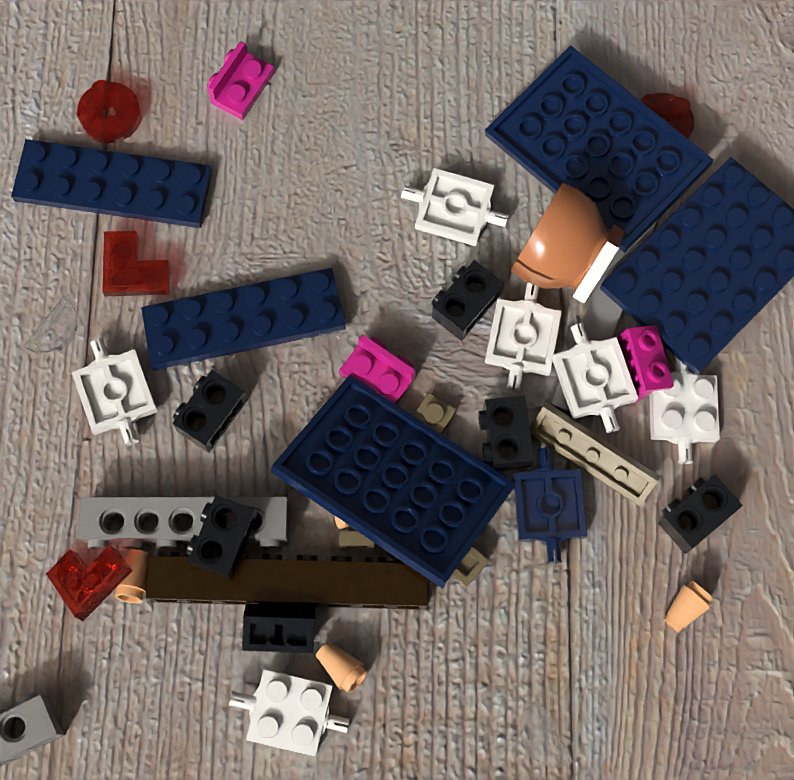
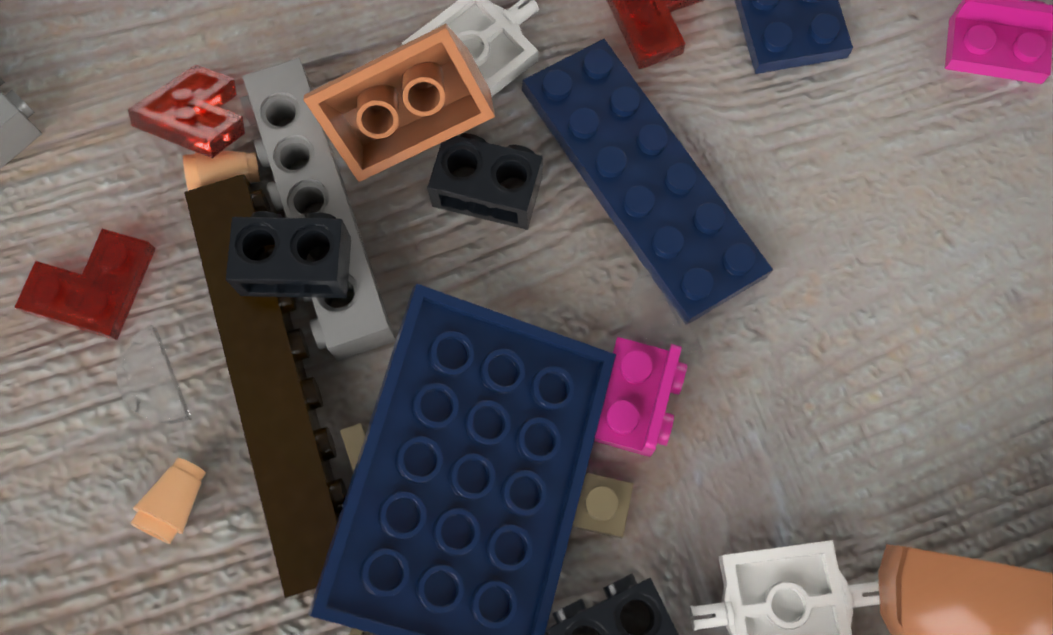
camera: 75 degrees right, 0 degrees up
(152, 438) = (403, 102): none -> nougat slope
(187, 683) = (96, 298): none -> clear red plate
(278, 628) = (191, 388): black brick -> none
(289, 712) = (85, 449): white plate -> none
(454, 206) = (957, 419): white plate -> none
(472, 303) = (807, 503): black brick -> none

